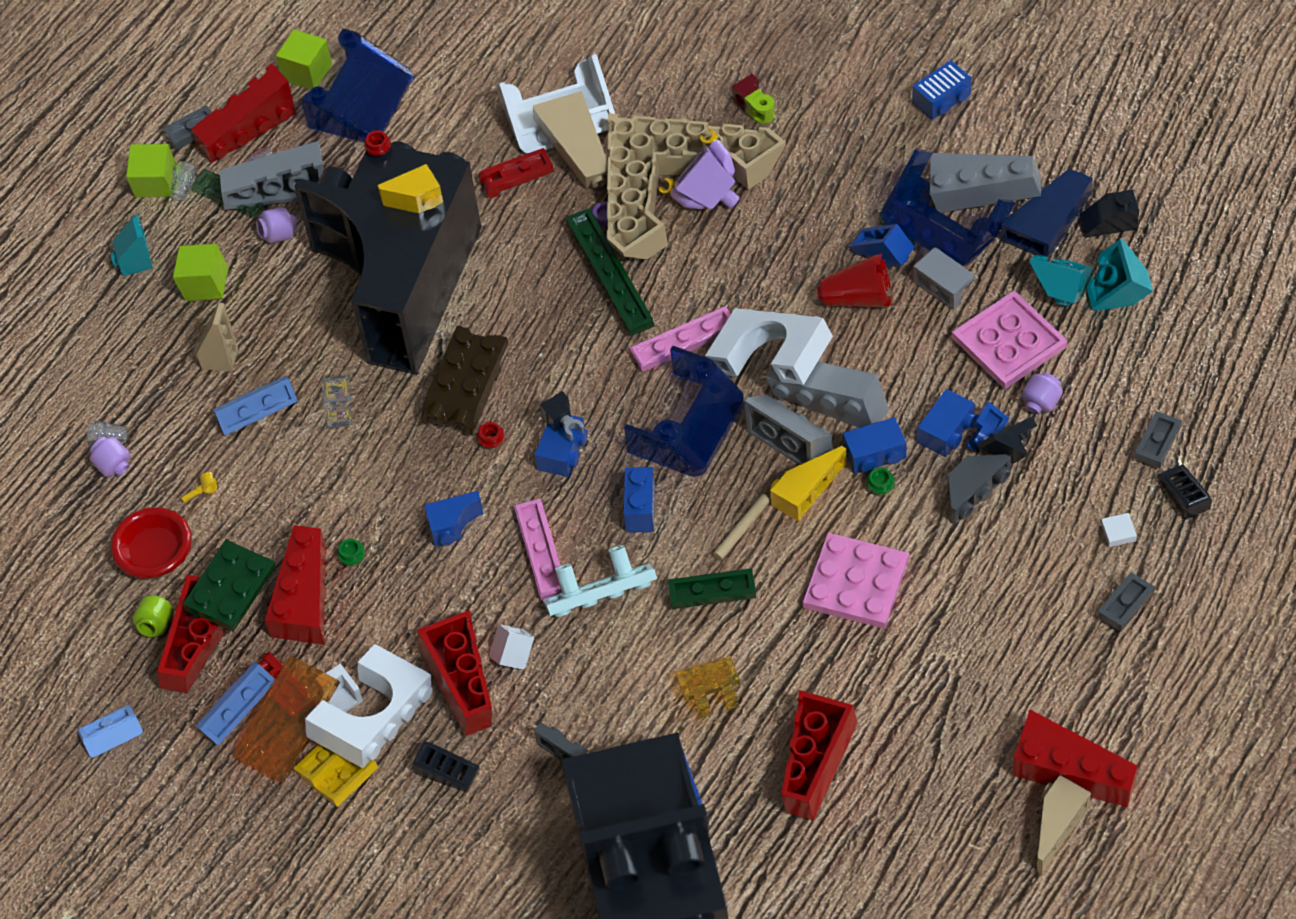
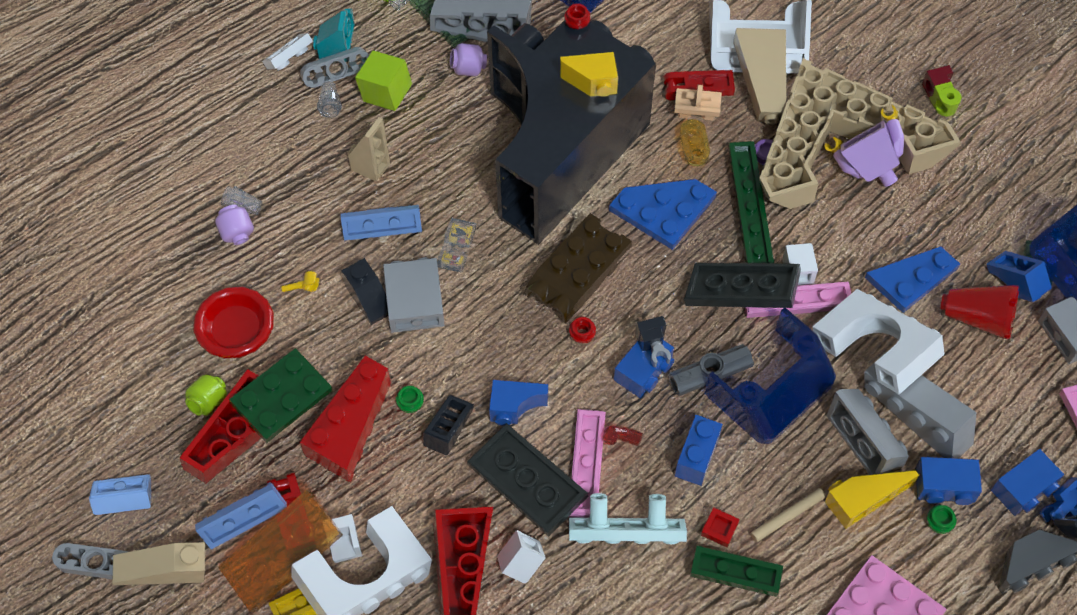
camera: 15 degrees right, 5 degrees up
(92, 272) = (296, 47): none -> white plate
(124, 800) = (74, 567): none -> light grey beam
(125, 281) = (316, 65): none -> light grey beam
(152, 311) = (329, 101): none -> clear cone
(181, 769) = (161, 565): none -> tan slope
(268, 471) = (366, 290): none -> black slope
(316, 459) = (413, 295): none -> light grey panel
(397, 577) = (442, 440): none -> black slope
(490, 580) = (528, 479): none -> pearl dark grey tile
(521, 189) = (698, 102): none -> light nougat hips
(525, 301) = (664, 209): none -> blue plate
(534, 230) = (694, 144): none -> clear yellow plate
(557, 512) = (625, 434): none -> clear red arm
(613, 436) = (725, 363): none -> dark grey piece
(626, 341) = (743, 285): none -> pearl dark grey tile
(674, 305) = (803, 255): none -> white panel
(683, 558) = (720, 527): none -> red plate
(785, 281) = (913, 277): none -> blue wing

